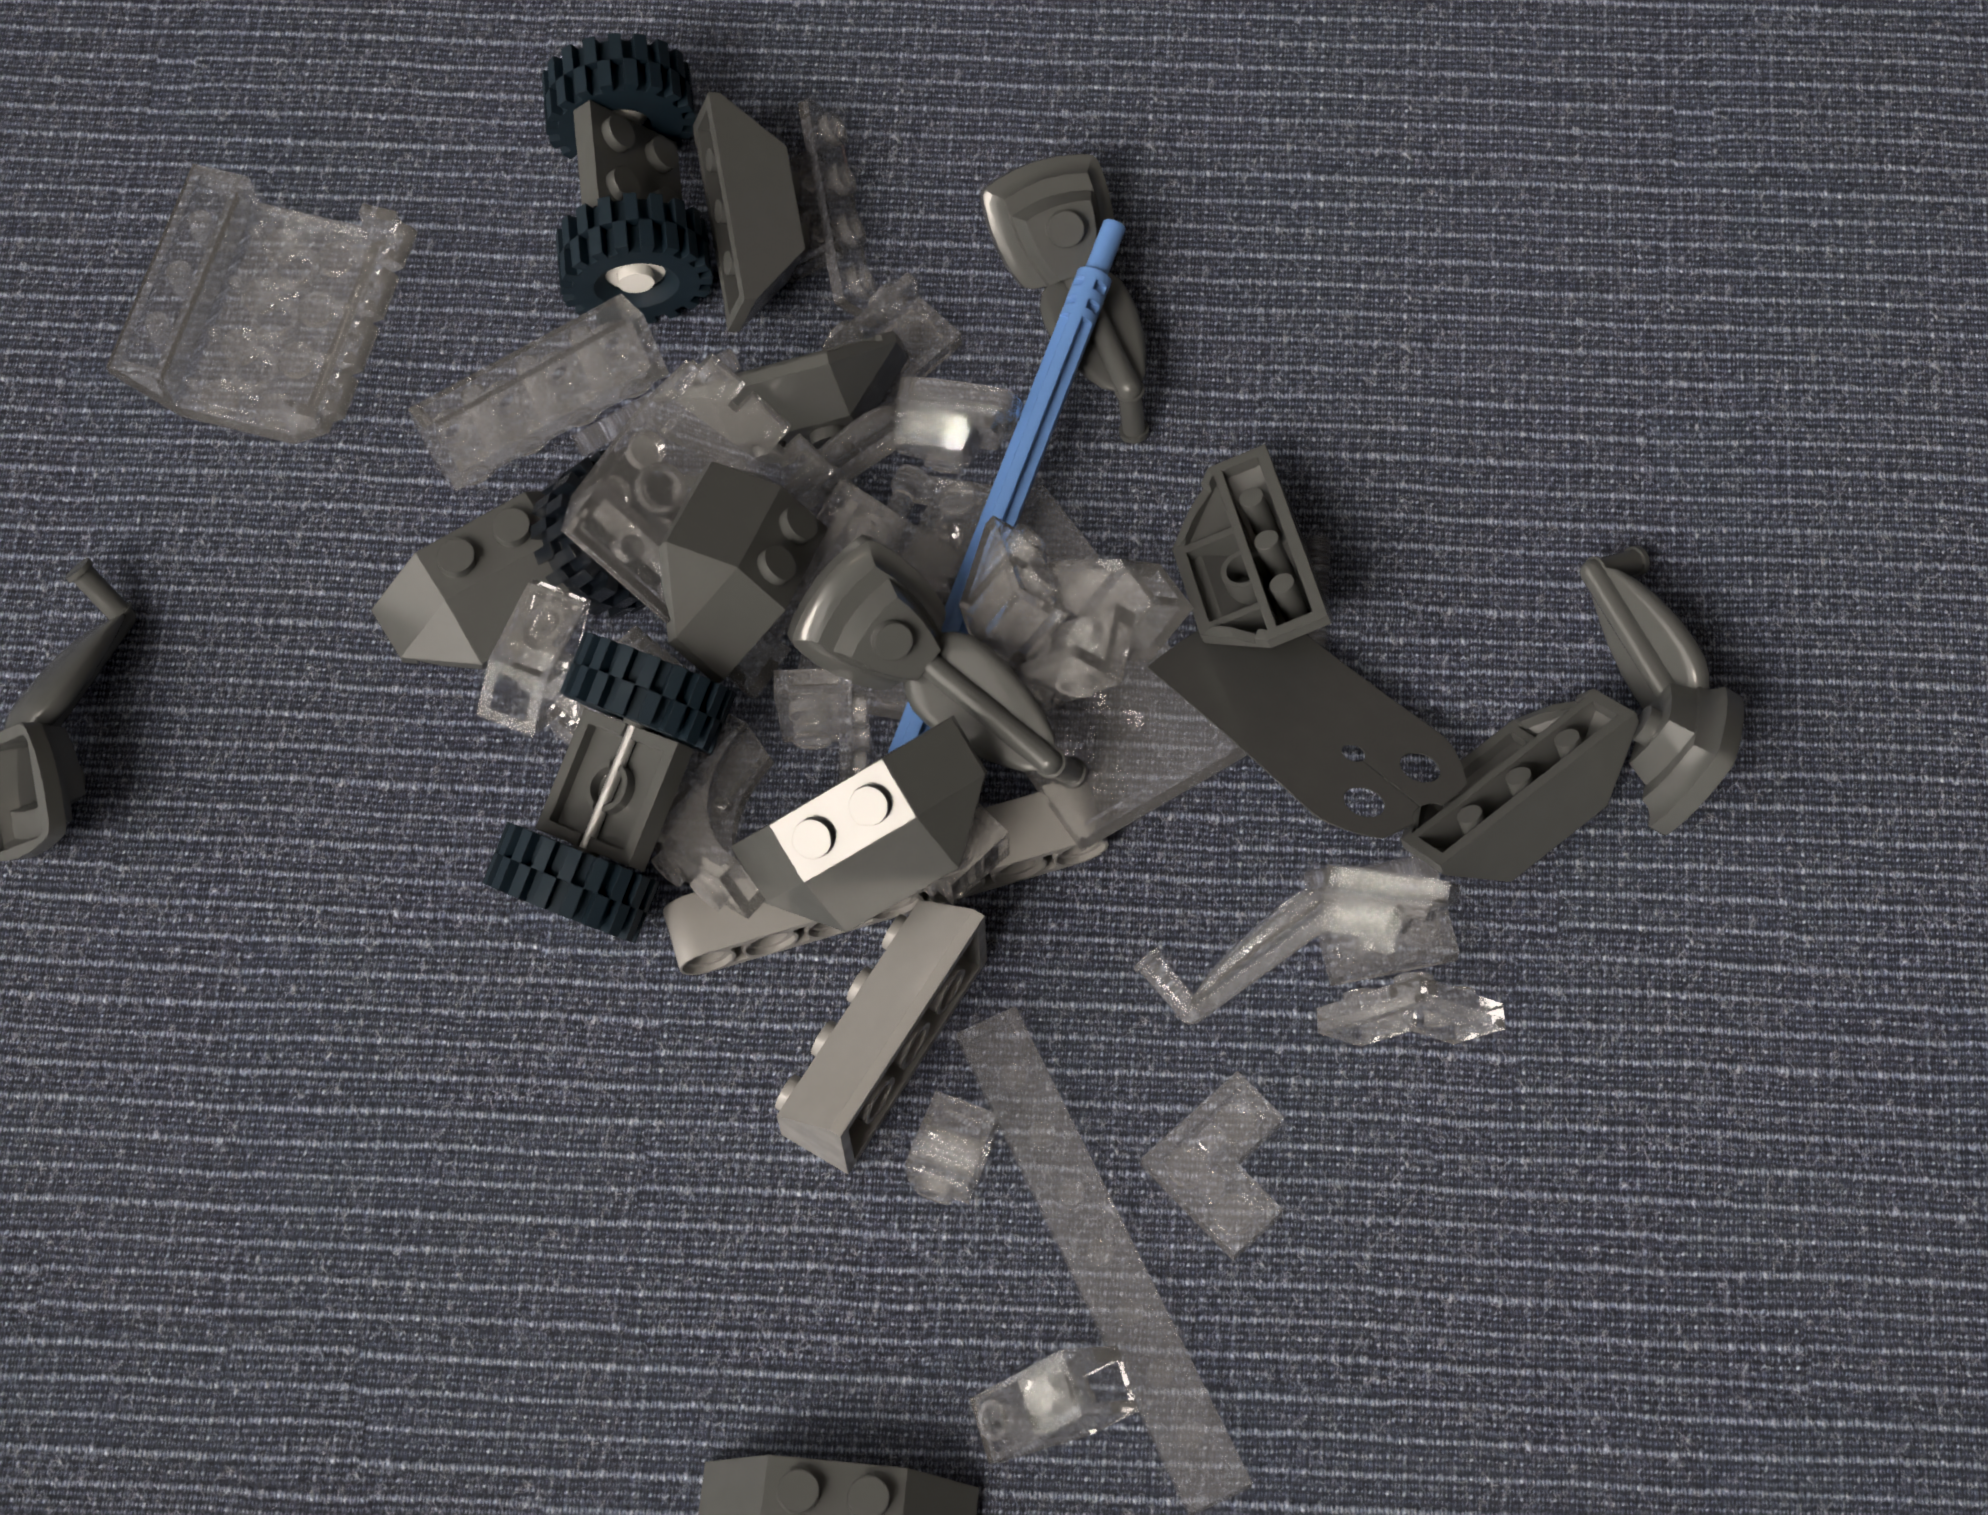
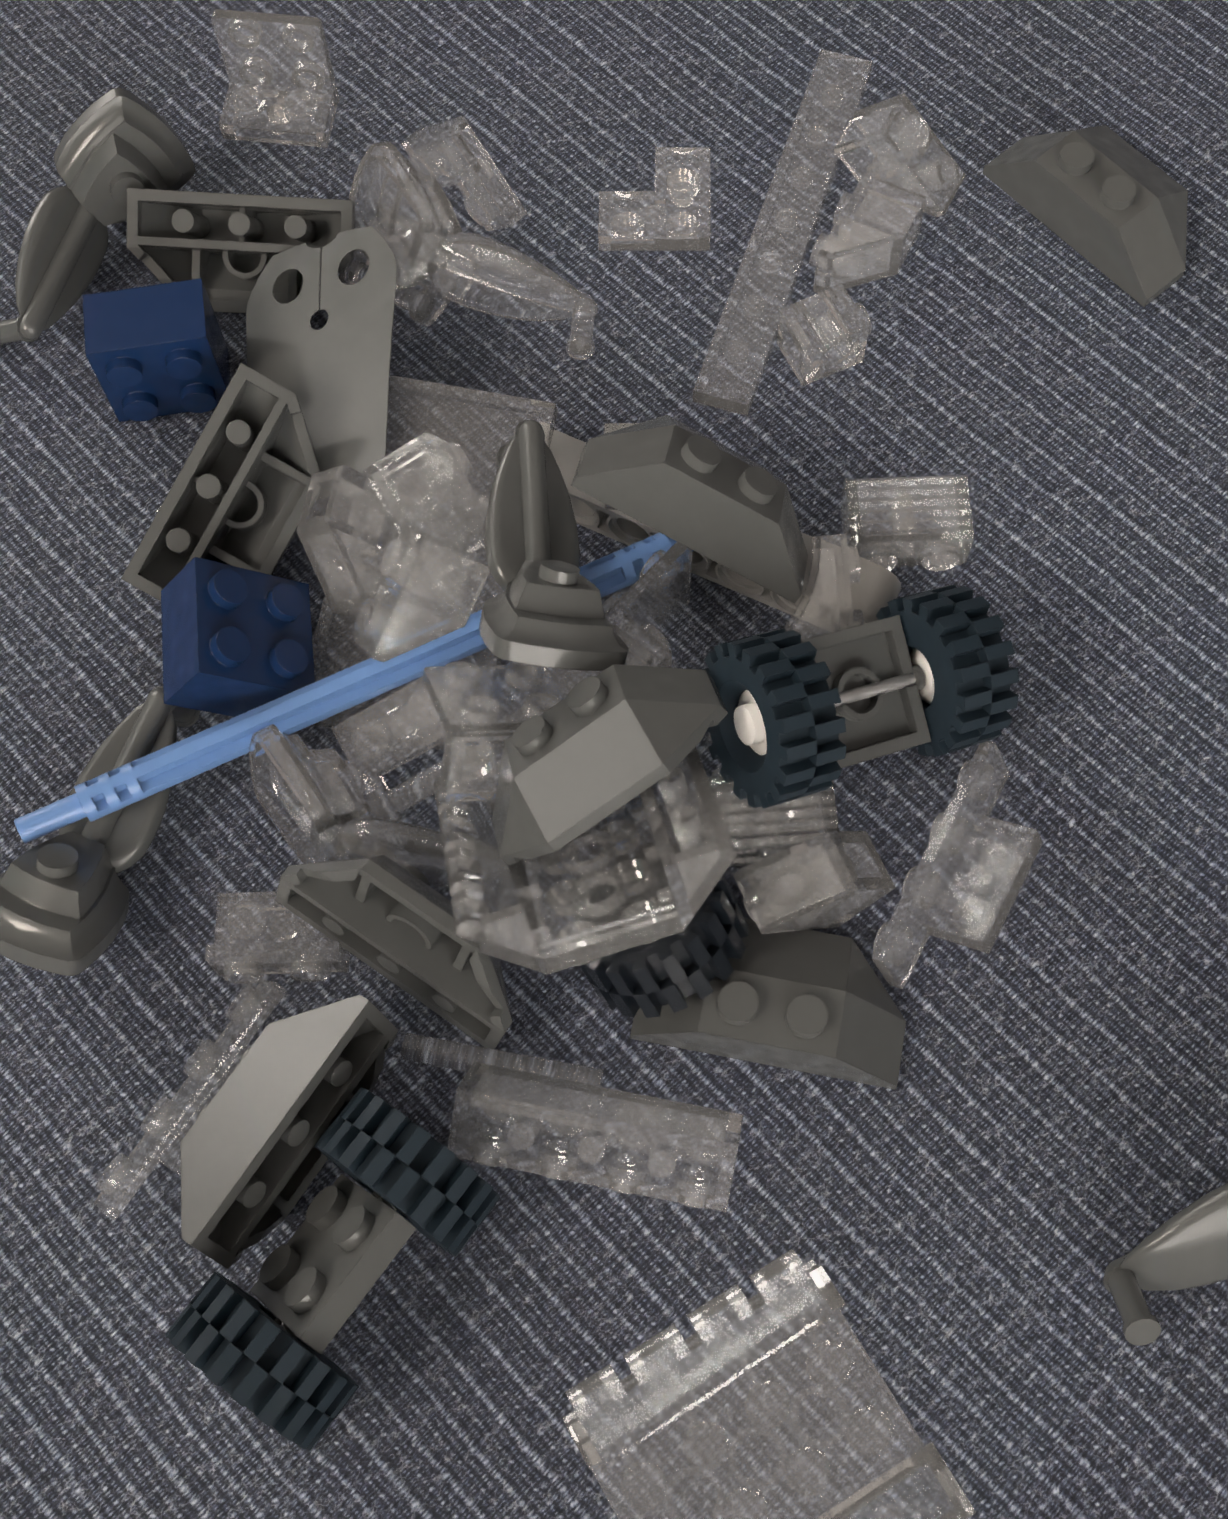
camera: 135 degrees left, 0 degrees up
(436, 779) = (964, 875): none -> clear bracket
(724, 1029) = (909, 520): none -> clear brick
(884, 1032) = (817, 406): light grey slope -> none
(1003, 1291) = (869, 235): none -> clear slope
(1122, 470) = (233, 638): none -> dark blue brick
(1454, 627) = (156, 349): none -> dark blue brick
(1675, 965) = (277, 78): none -> clear bracket

